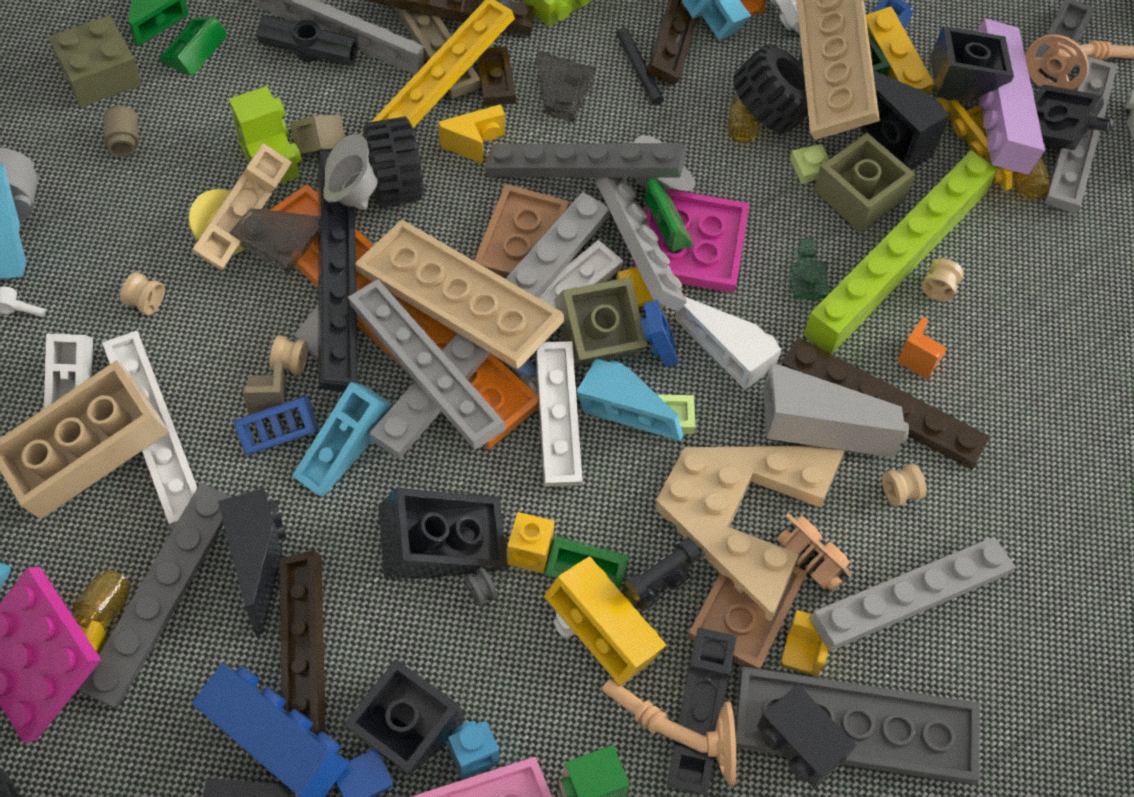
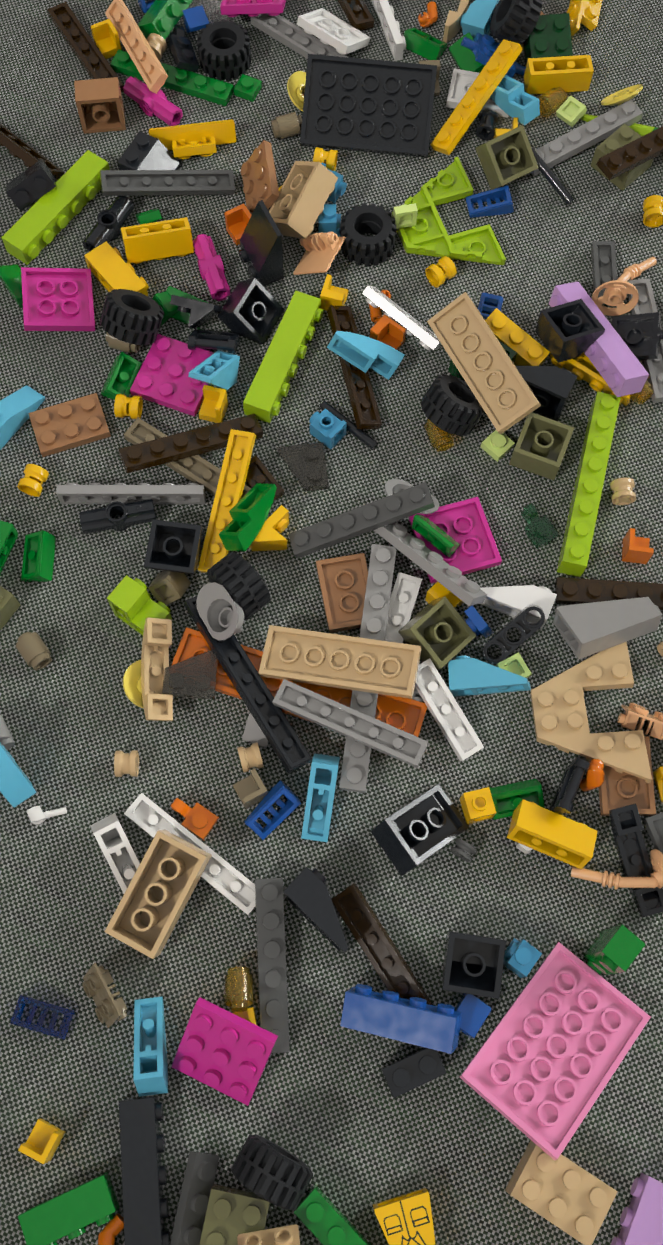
camera: 25 degrees left, 10 degrees up
(182, 393) = (197, 819): none -> orange plate
(348, 91) = (174, 546): none -> black slope
(451, 99) = (248, 517): none -> green slope
(608, 50) = (330, 433): none -> dark azure brick
(702, 579) = (594, 776): none -> orange arm
(714, 369) = (508, 645): none -> black beam

